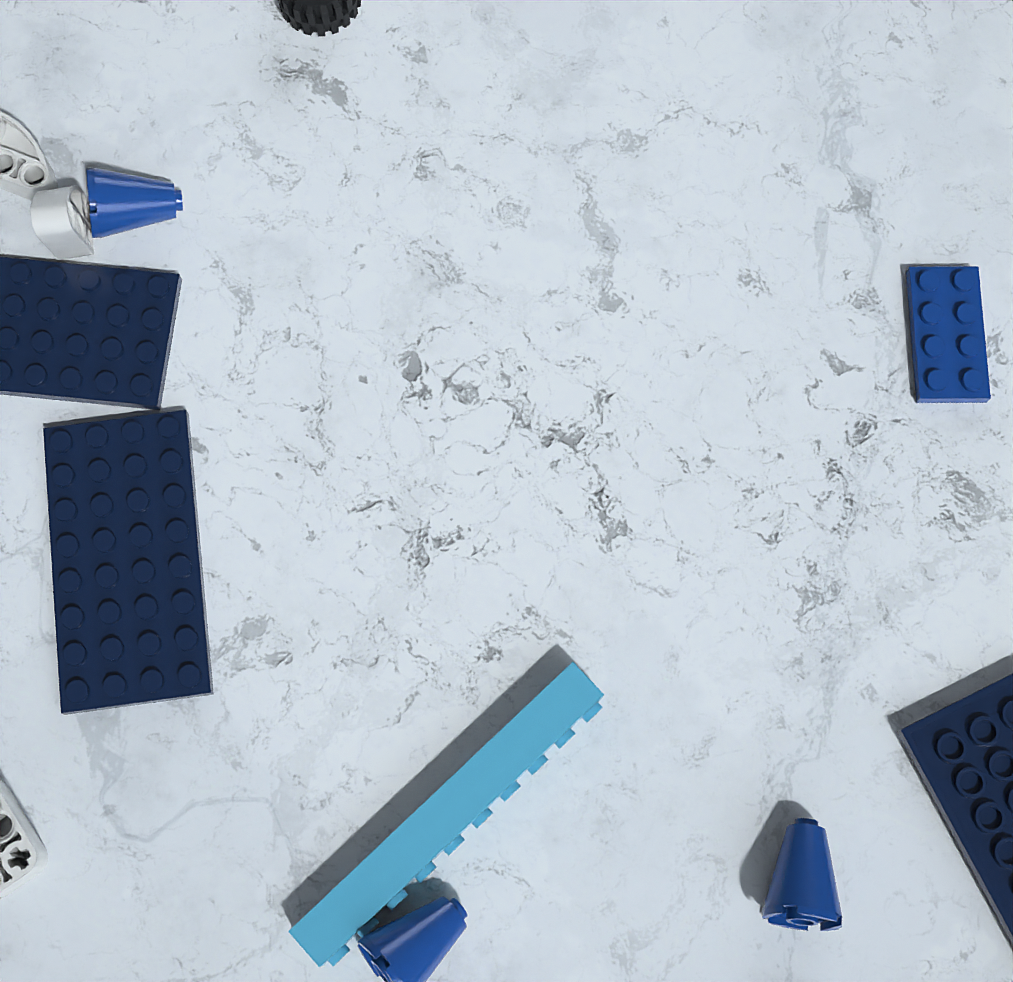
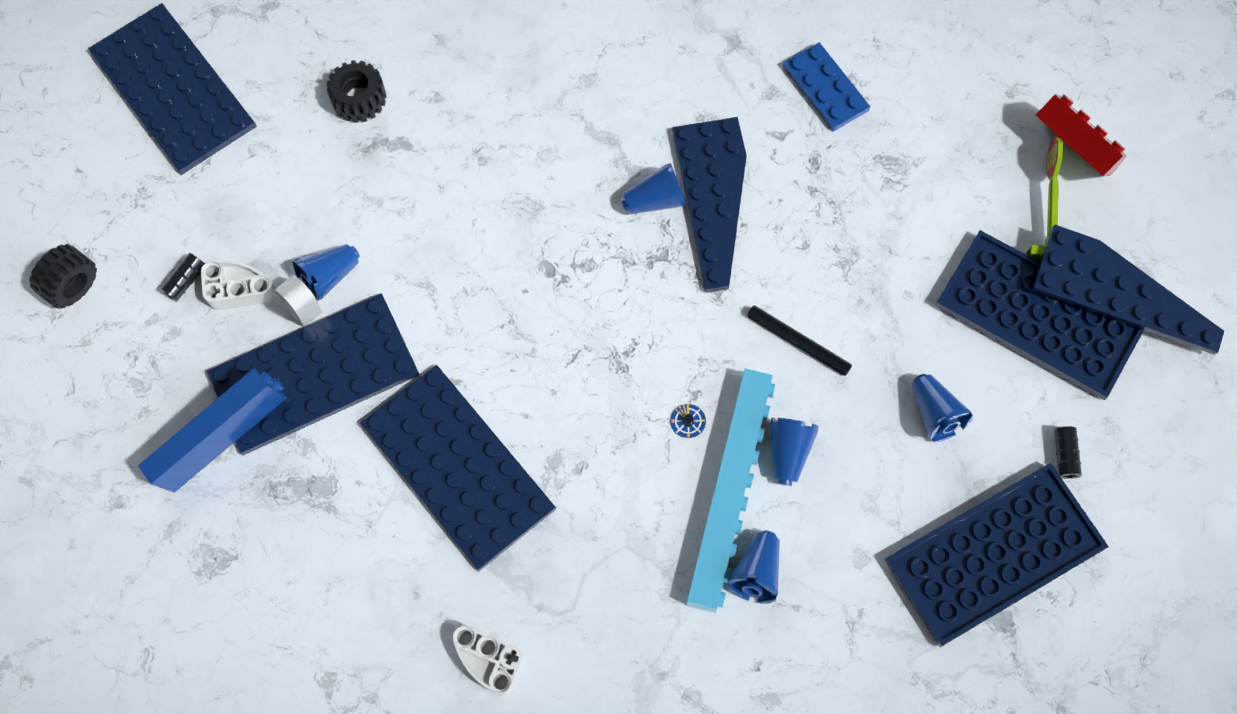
camera: 30 degrees left, 5 degrees down
(458, 683) = (688, 421): none -> blue piece
(563, 809) = (790, 448): none -> blue cone
(614, 347) = (654, 192): none -> blue cone
(677, 666) = (799, 340): none -> black axle
(709, 369) = (712, 176): none -> dark blue wing

